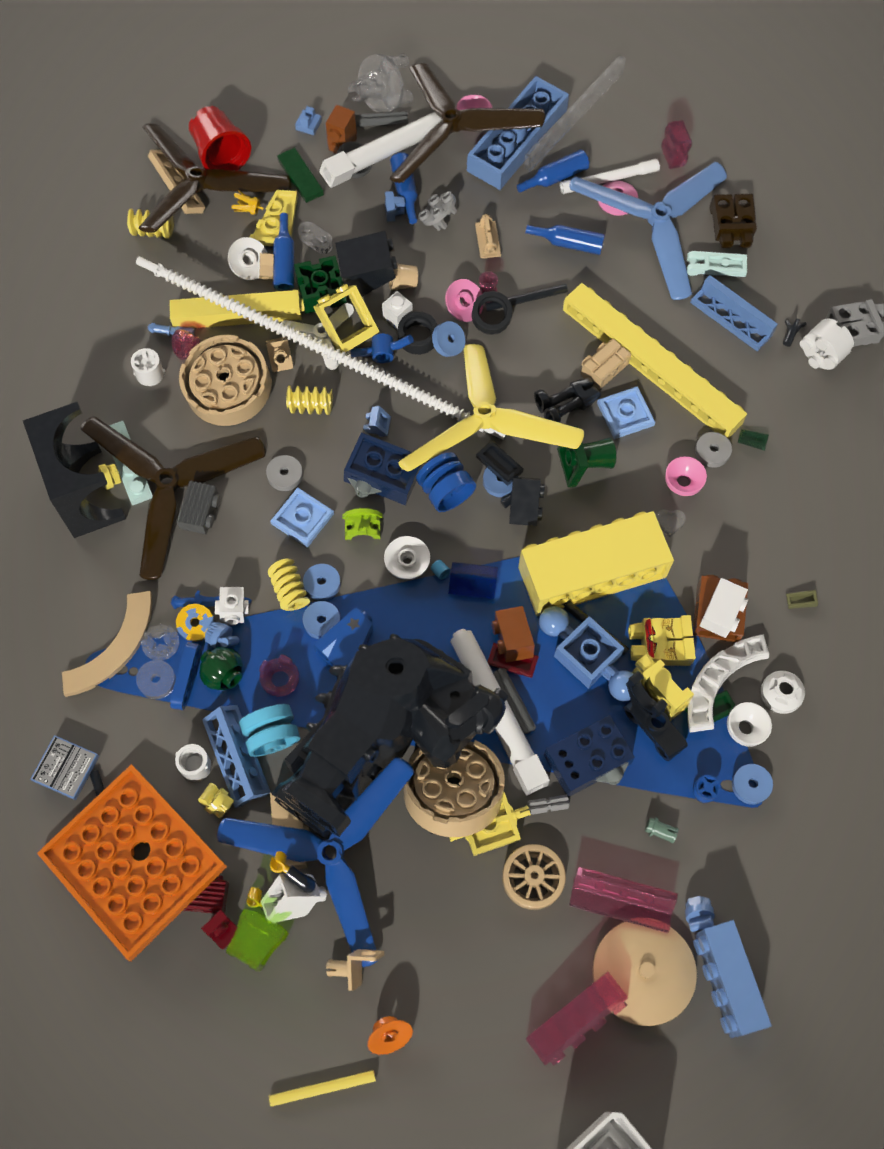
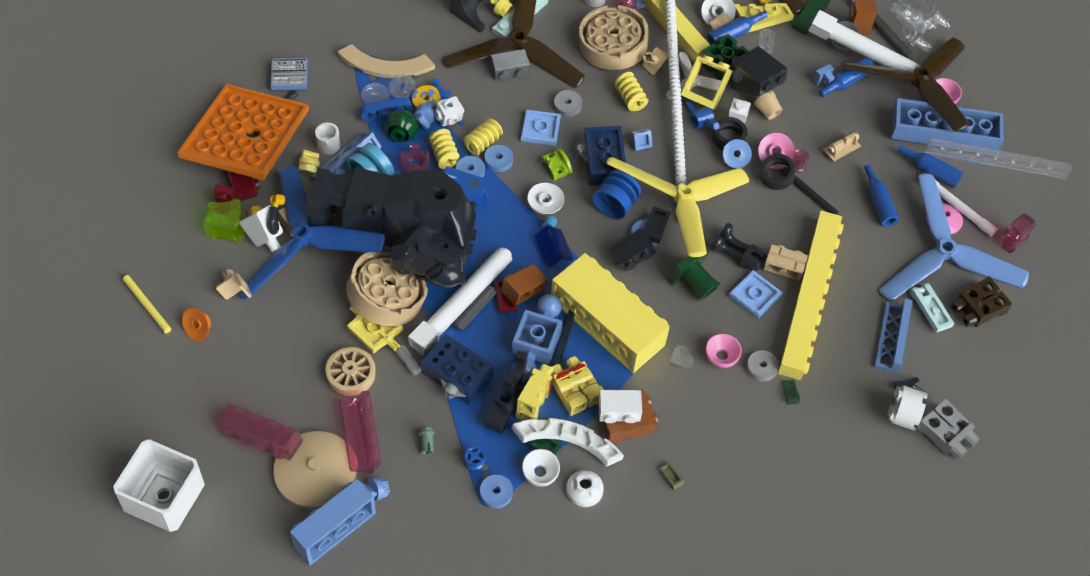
camera: 60 degrees right, 10 degrees down
(281, 635) = (444, 148): none -> light yellow piece
(437, 209) = (847, 103): light grey plate -> none

